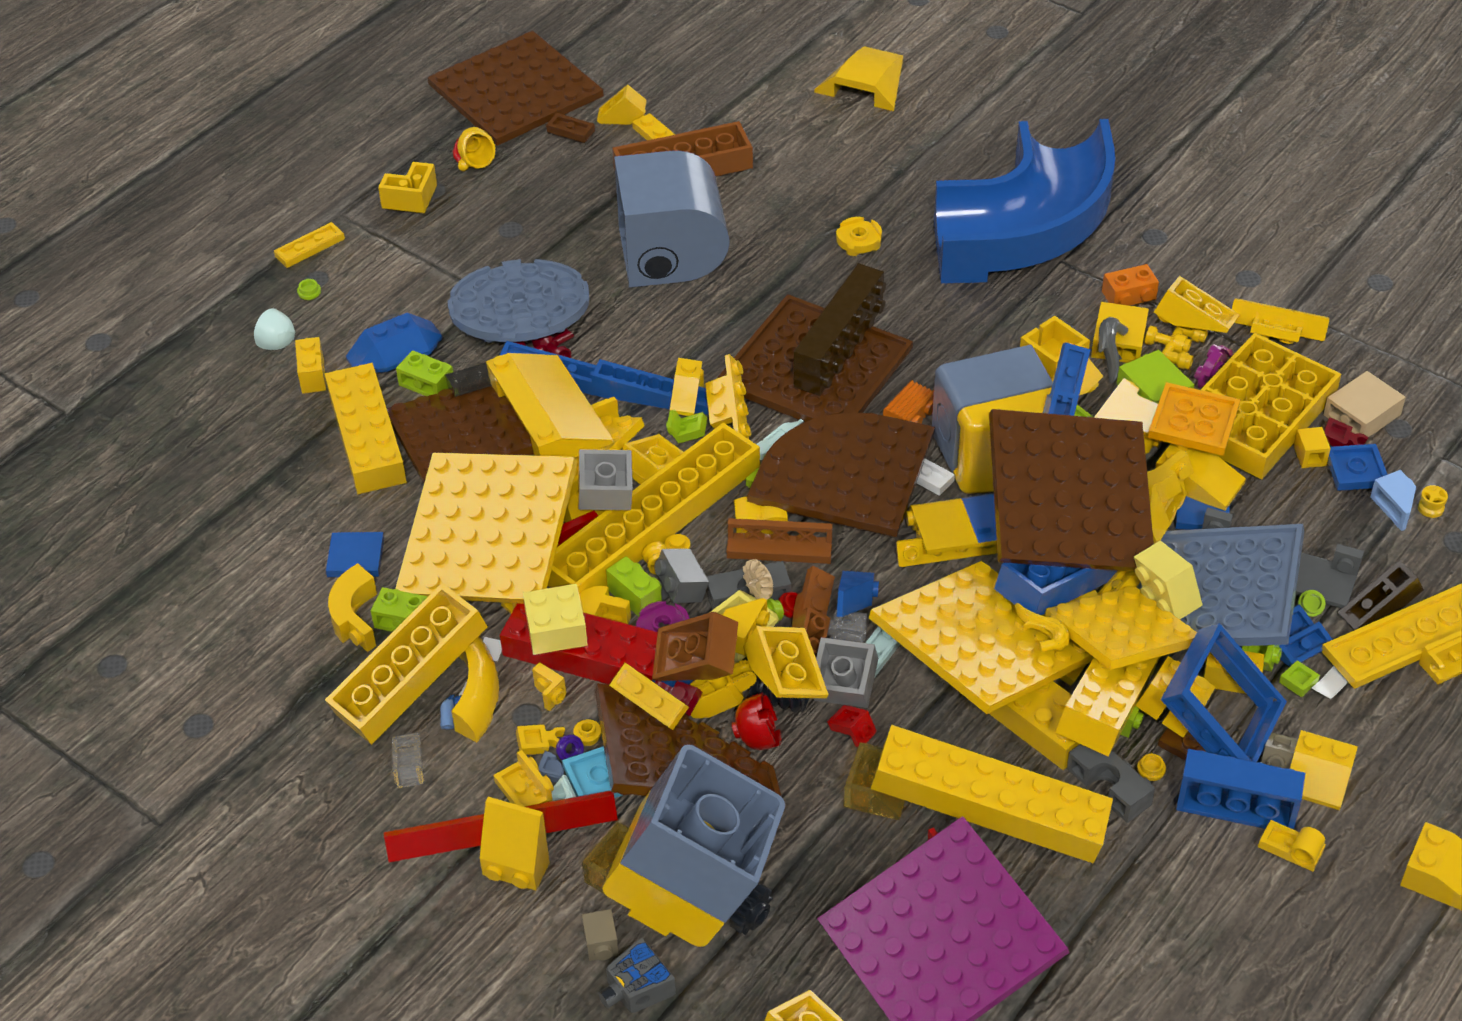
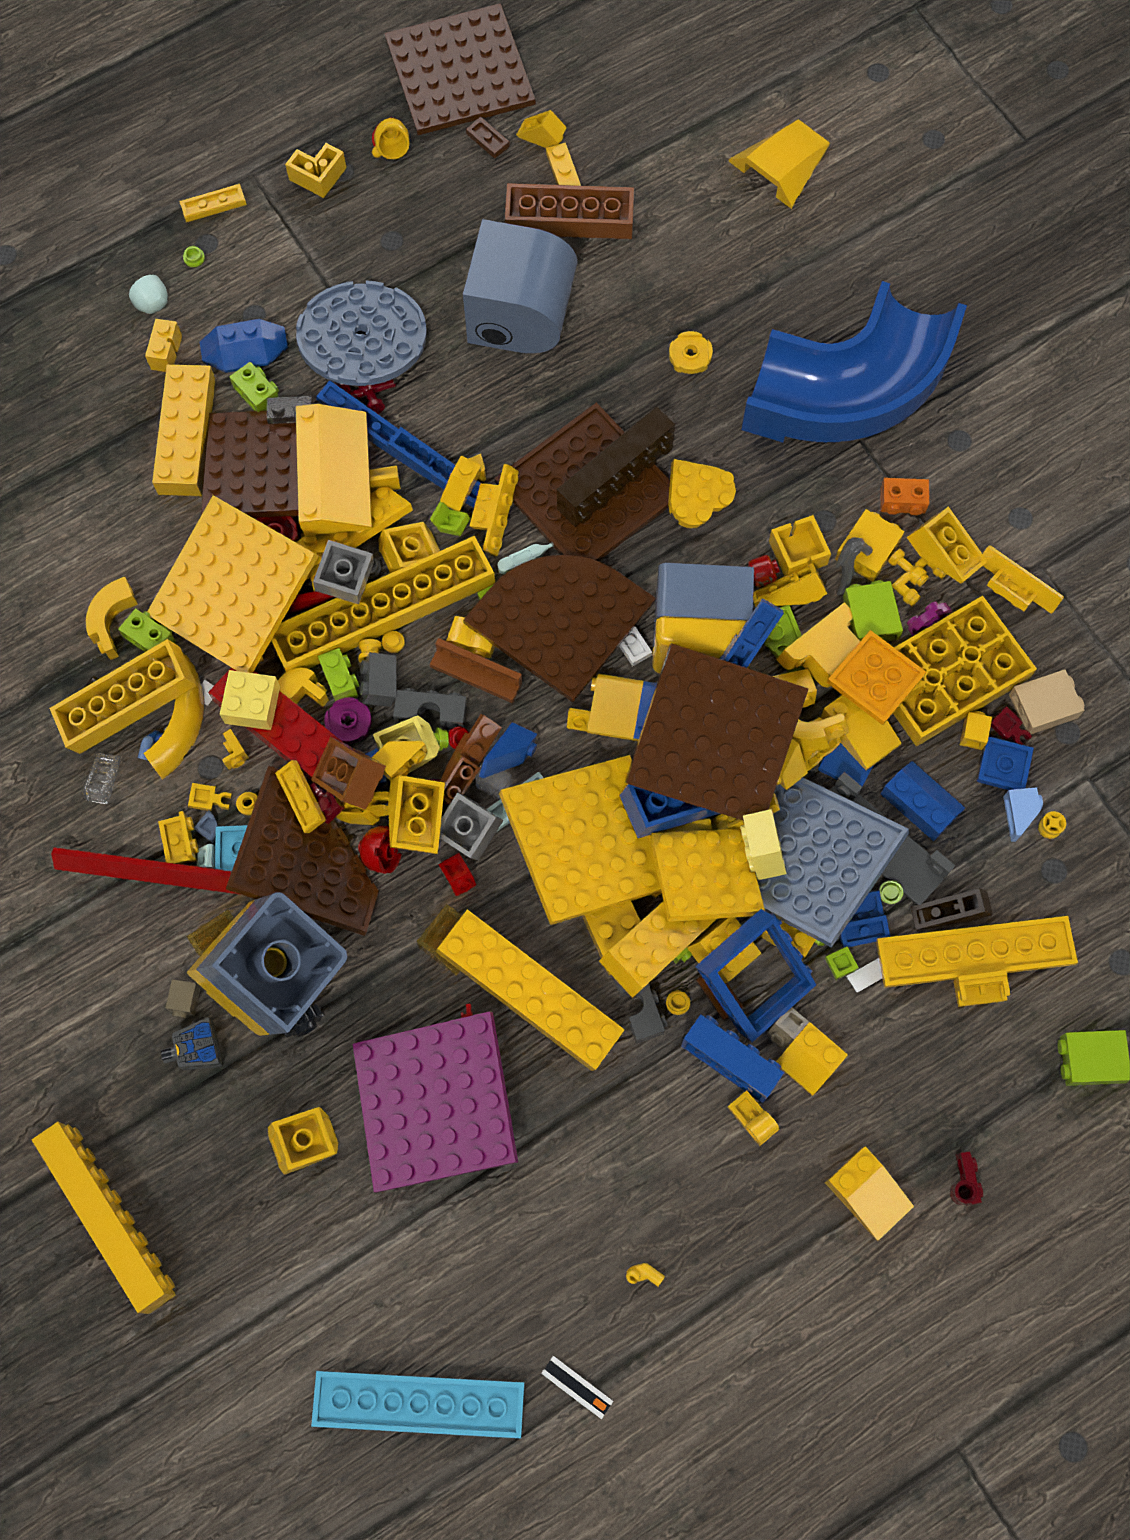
camera: 20 degrees right, 25 degrees up
(353, 548) = (133, 559): blue tile -> none
(513, 844) = (141, 902): yellow slope -> none
(577, 746) = (227, 820): dark purple plate -> none
(758, 579) = (433, 713): tan gear -> none
(911, 403) = (644, 565): orange brick -> none
(928, 335) = (698, 491): none -> yellow plate
(1050, 626) = (645, 852): yellow piece -> none
(1317, 523) = (922, 800): none -> blue slope

